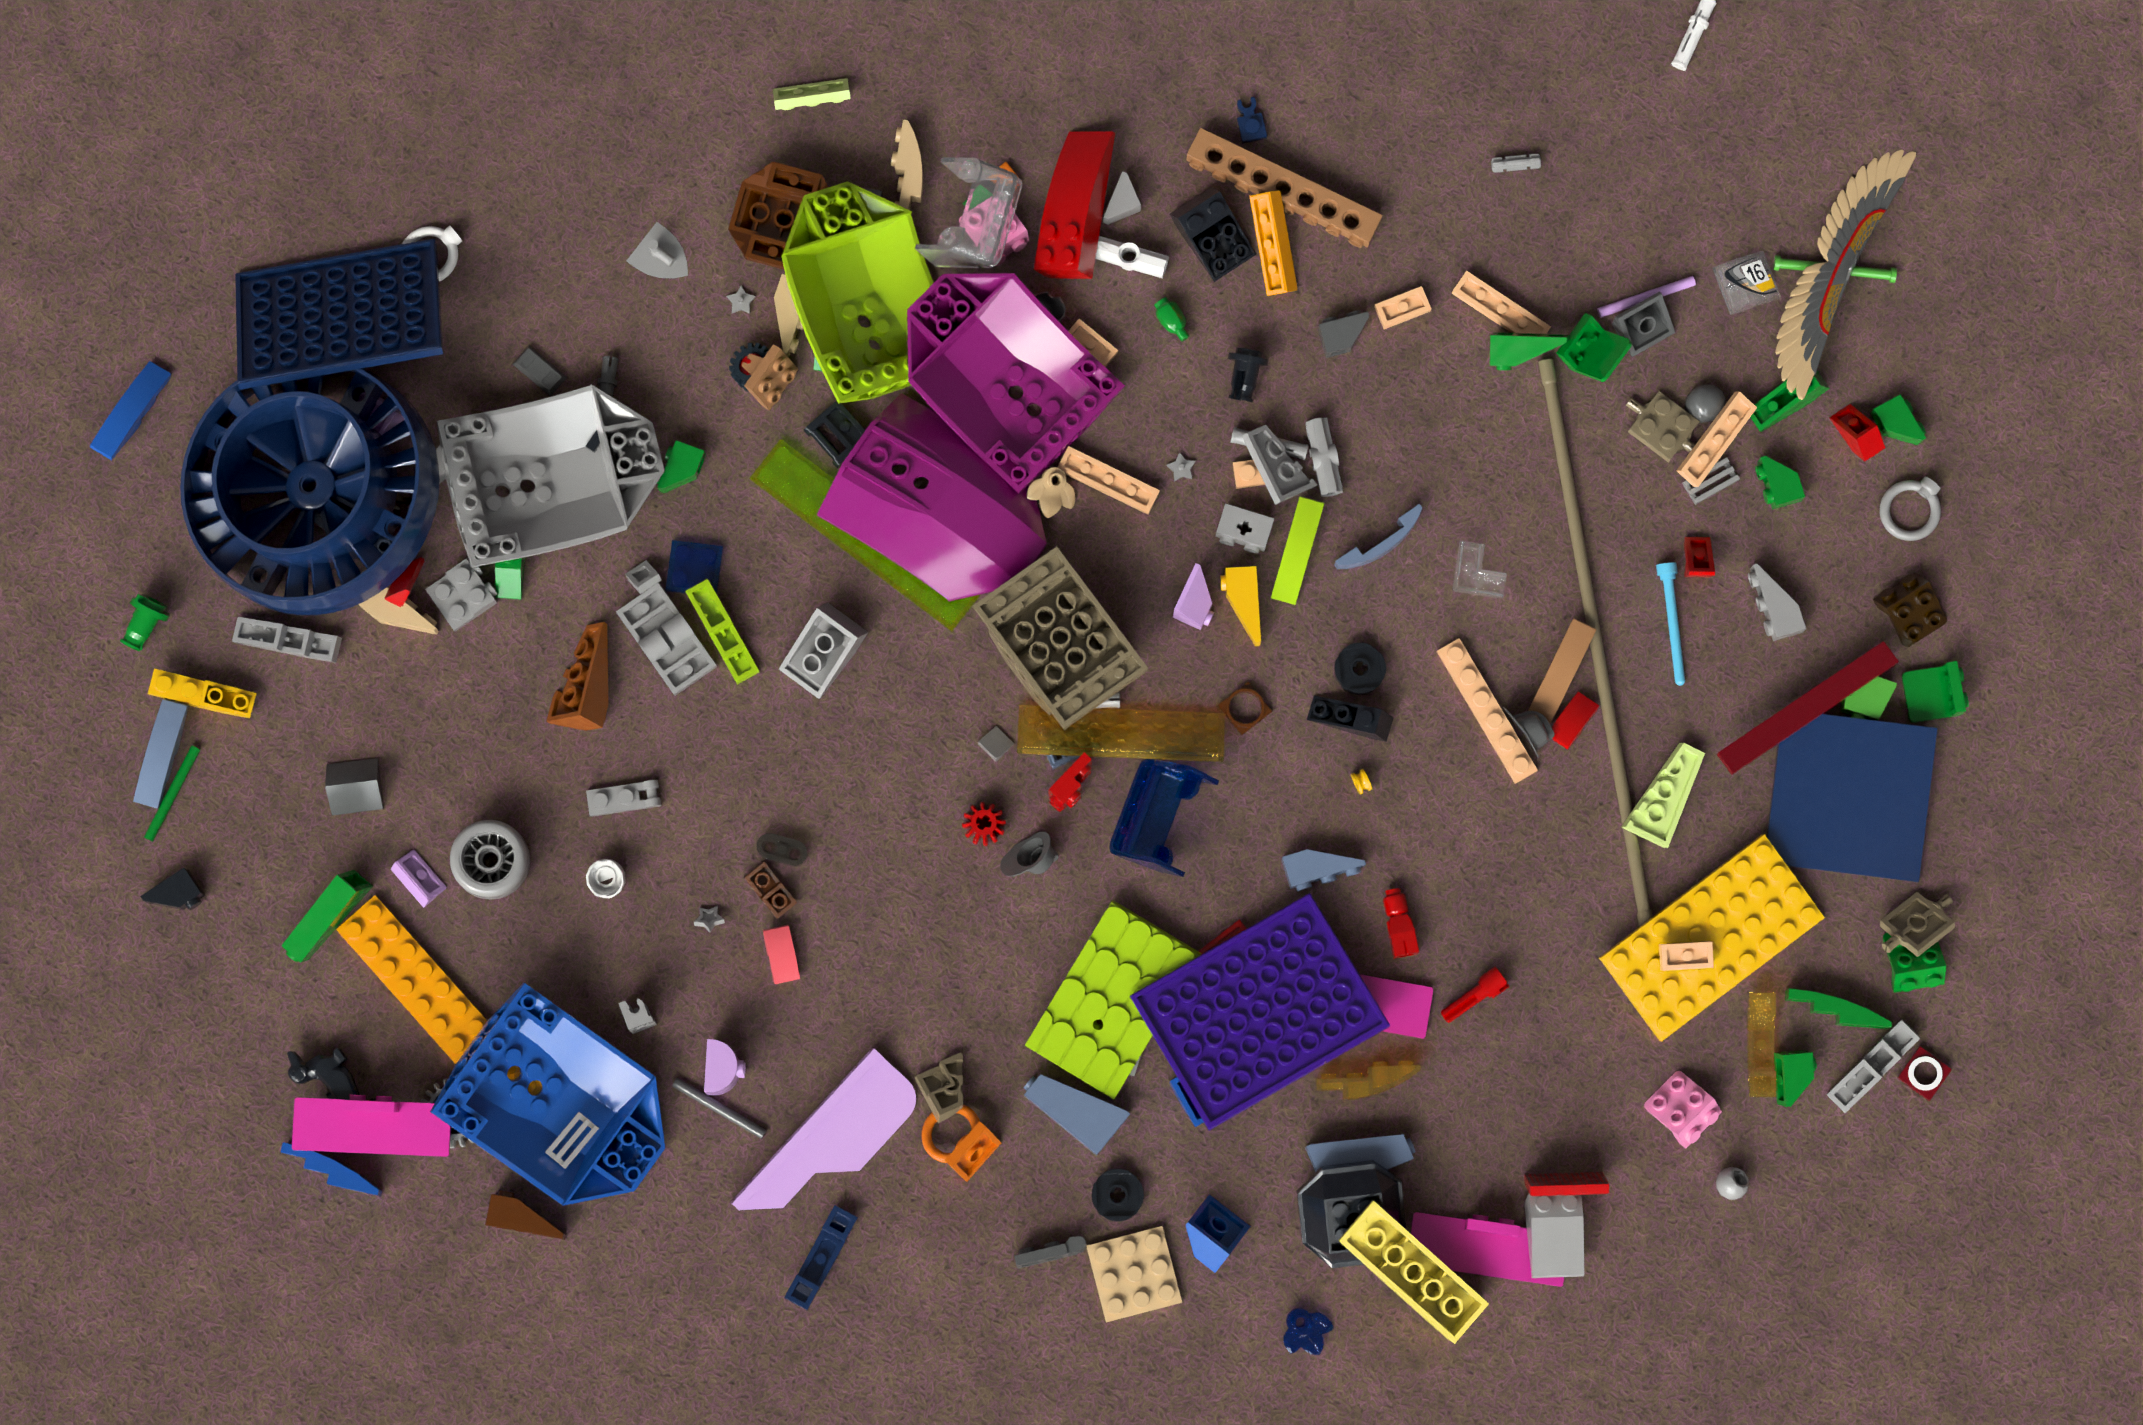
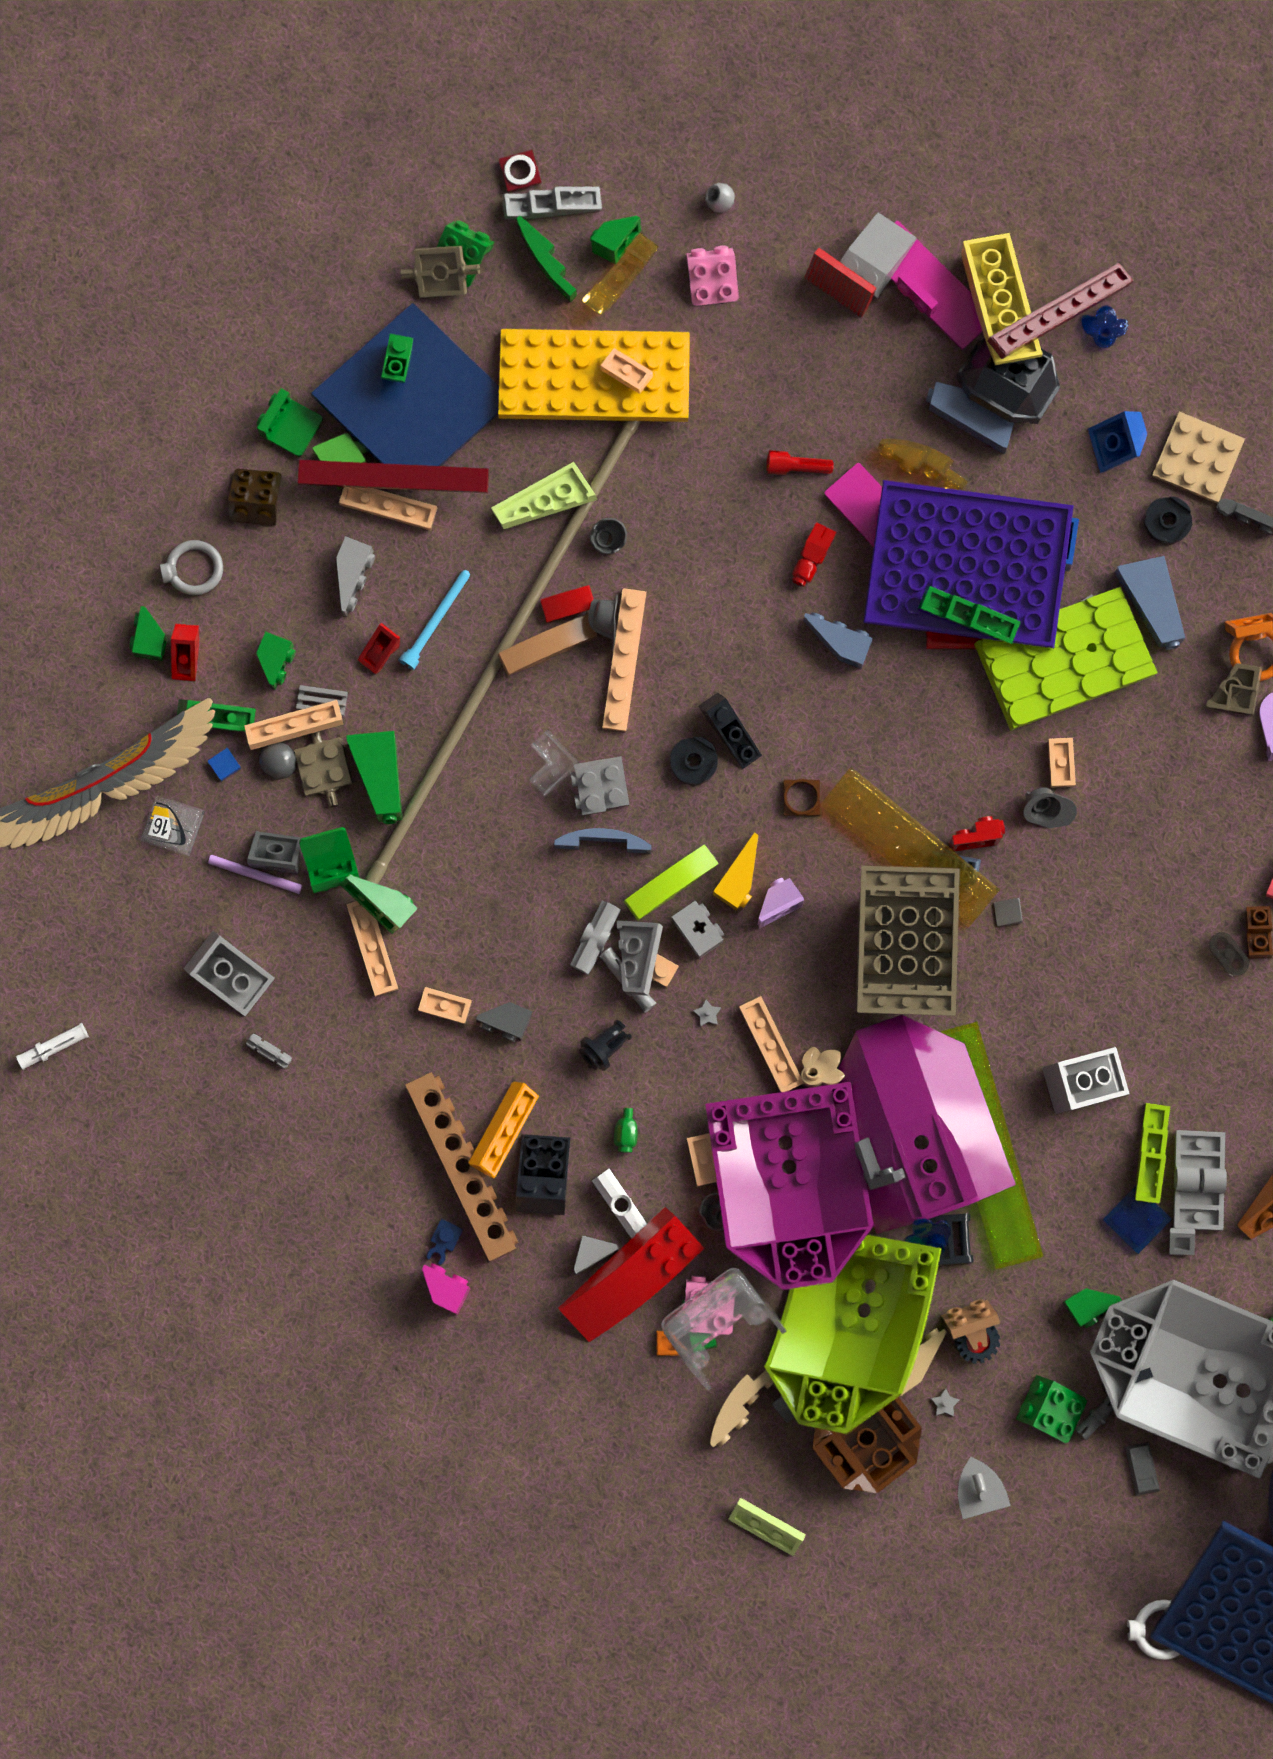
camera: 140 degrees left, 0 degrees up
(649, 359) = (1052, 1408): none -> green bracket
(850, 417) = (930, 1234): none -> clear blue plate
(939, 427) = (872, 1173): none -> dark grey bracket
(986, 832) = (1061, 866): red gear -> none
(1048, 906) = (1061, 762): none -> light nougat plate
(1151, 811) = (936, 771): clear blue windscreen -> none
(1219, 78) = (444, 1290): none -> dark pink slope
(1224, 964) = (969, 614): none -> green slope
(1354, 1301) = (1059, 311): none -> tile
(1361, 781) = (758, 678): yellow bush -> none
(1422, 584) = (599, 785): none -> light grey plate
(1593, 800) = (600, 533): none -> dark grey hair
(1601, 198) = (228, 973): none -> light grey slope
(1613, 454) = (378, 767): none -> green slope
(1747, 366) = (224, 764): none -> blue tile
(1787, 689) = (389, 506): none -> light nougat plate
(1858, 271) = (135, 822): bright green bar -> none
(1888, 810) = (397, 358): none -> green slope

